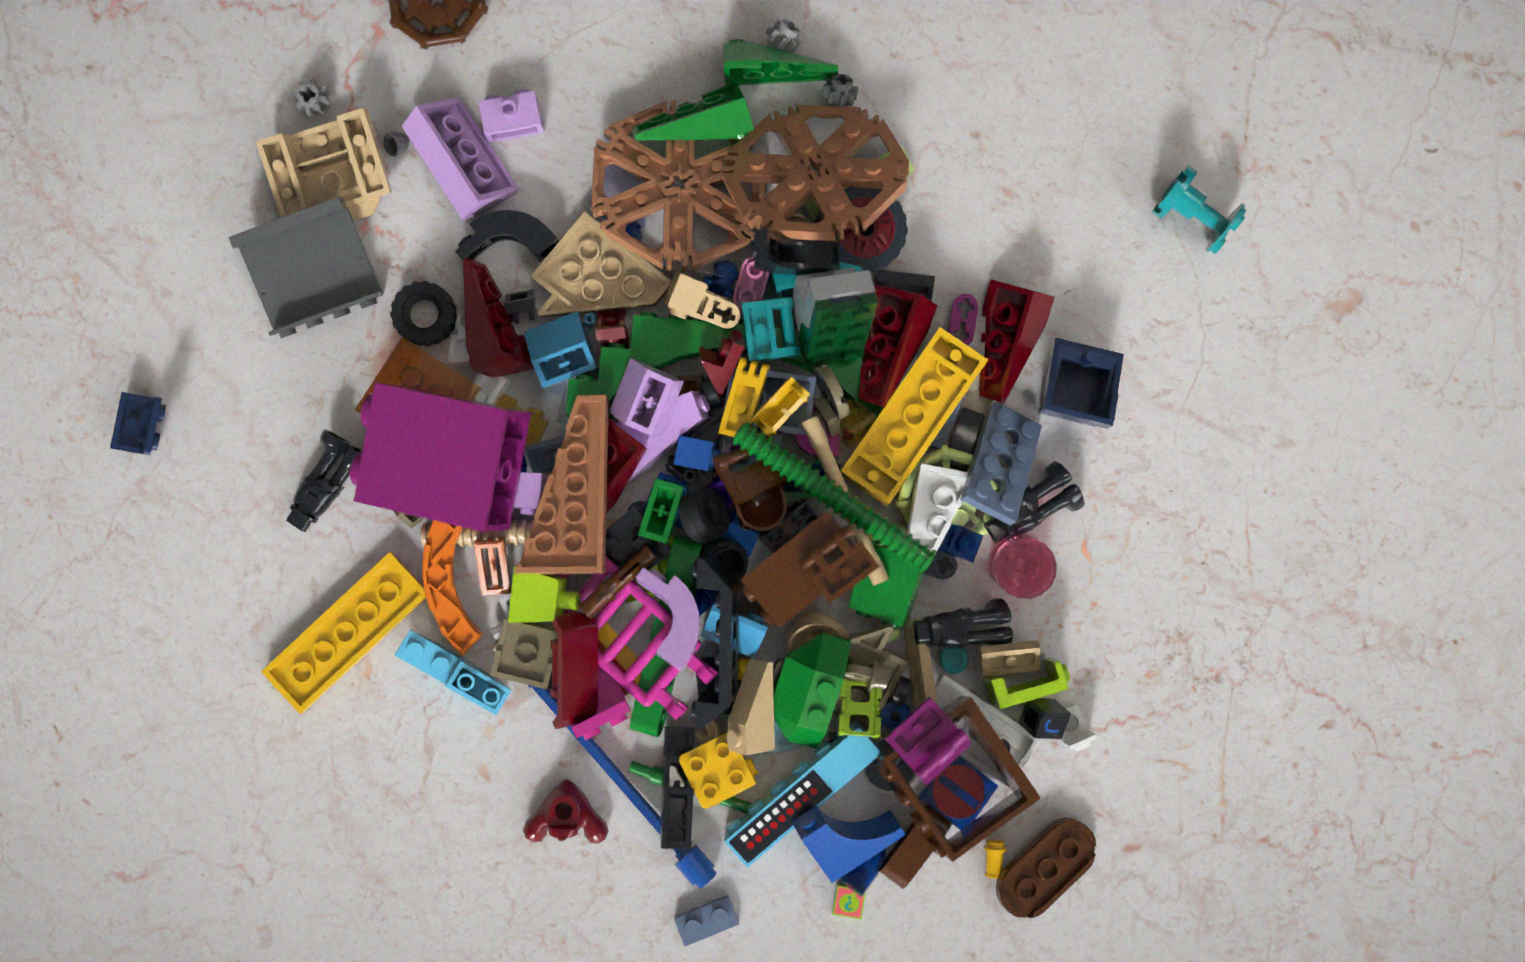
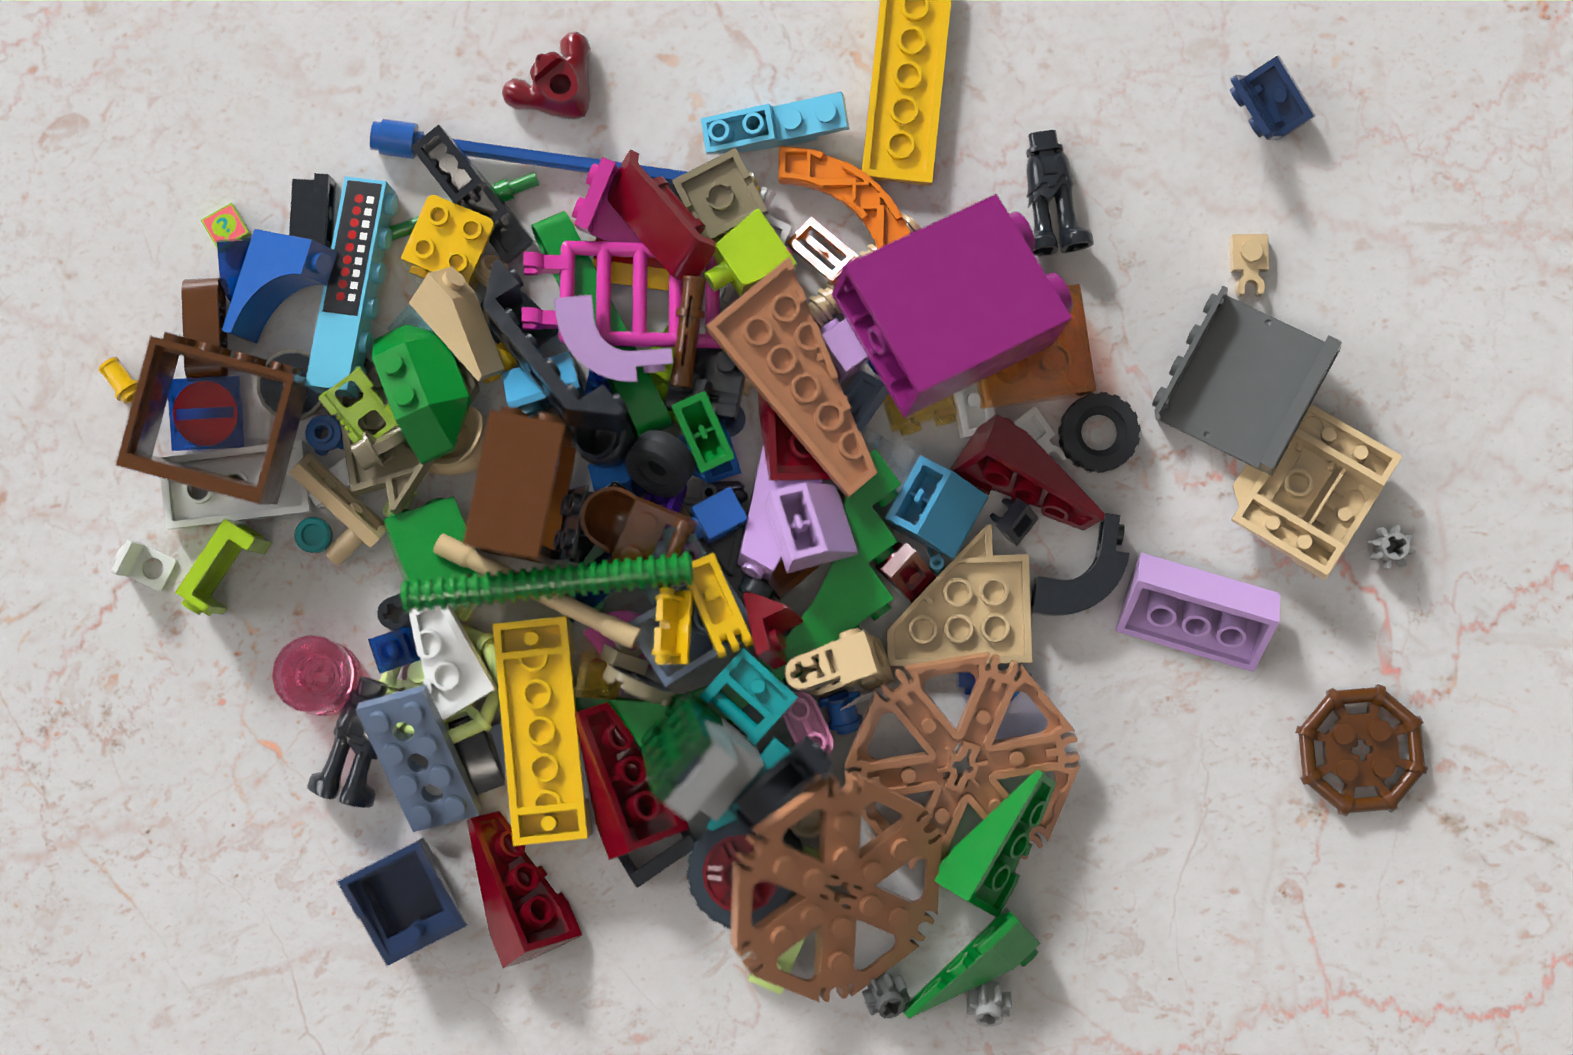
camera: 140 degrees right, 0 degrees up
(239, 342) = (1249, 256): none -> tan plate
(396, 143) = (1271, 573): dark grey hinge -> none
(511, 115) = (1185, 695): lavender brick -> none
(706, 920) = (345, 99): sand blue plate -> none
(786, 865) = (313, 208): none -> black panel
(845, 571) = (471, 512): reddish brown plate -> none
(901, 691) = (335, 459): black tile -> none
(928, 740) = (265, 426): magenta plate -> none
(953, 628) = (334, 560): black piece -> none
(969, 321) = (568, 874): magenta beam -> none
(1009, 658) = (258, 577): tan panel -> none
(1044, 718) = (176, 548): black brick -> none
(1046, 868) = (63, 412): reddish brown tile -> none

